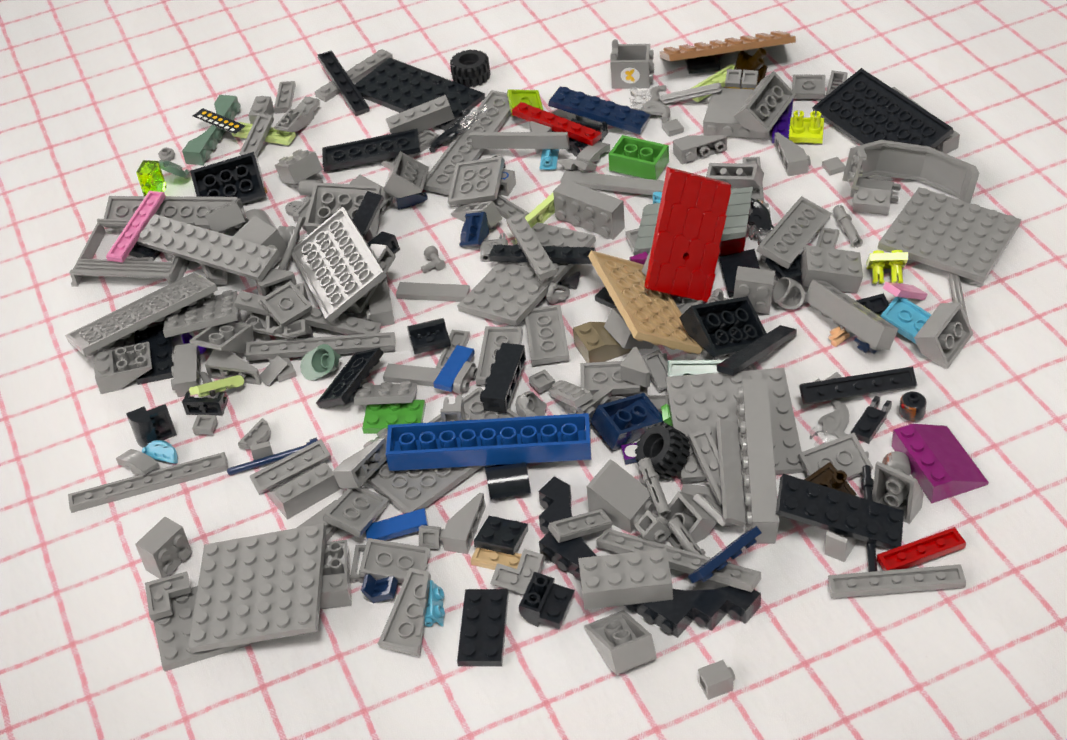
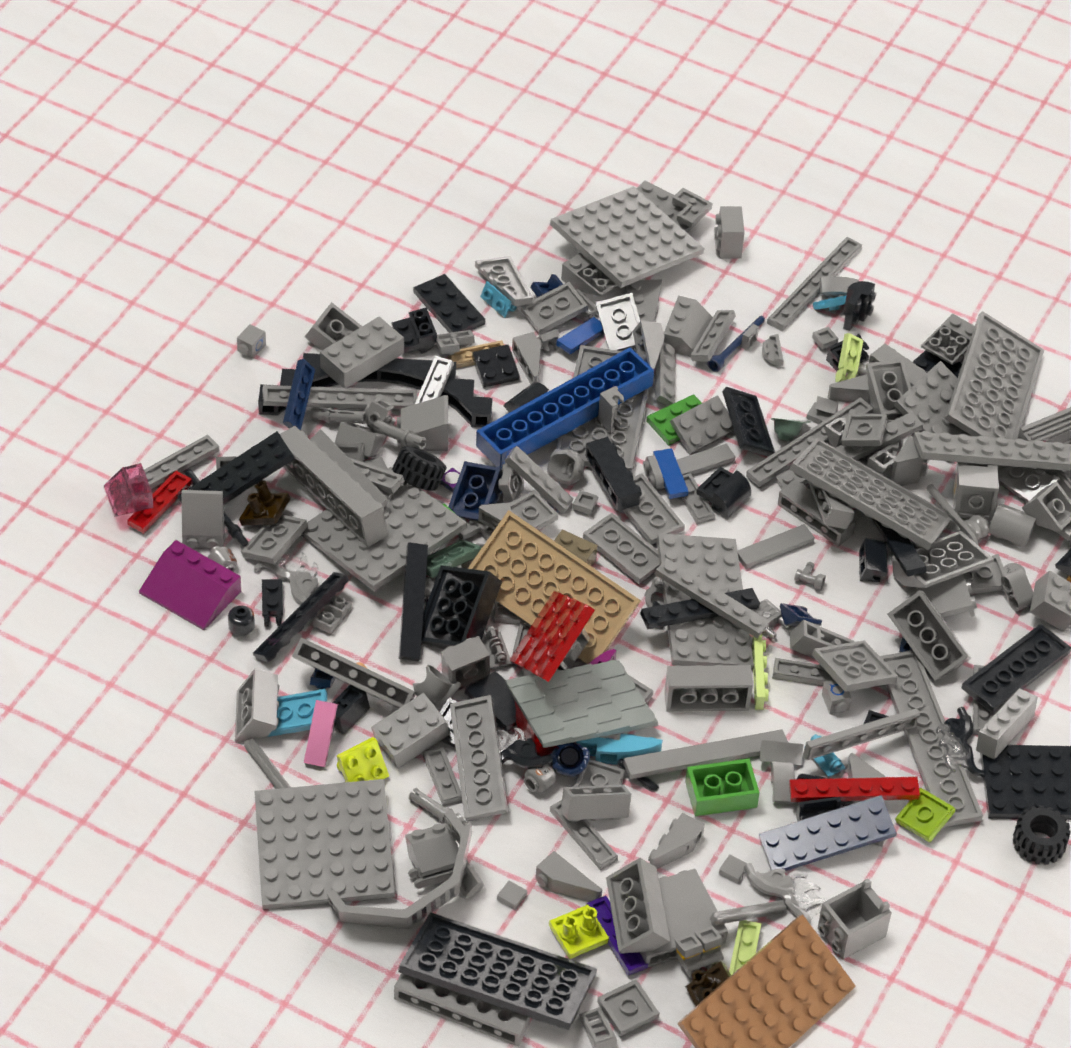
camera: 135 degrees right, 5 degrees up
(953, 551) = (129, 491): none -> clear pink slope

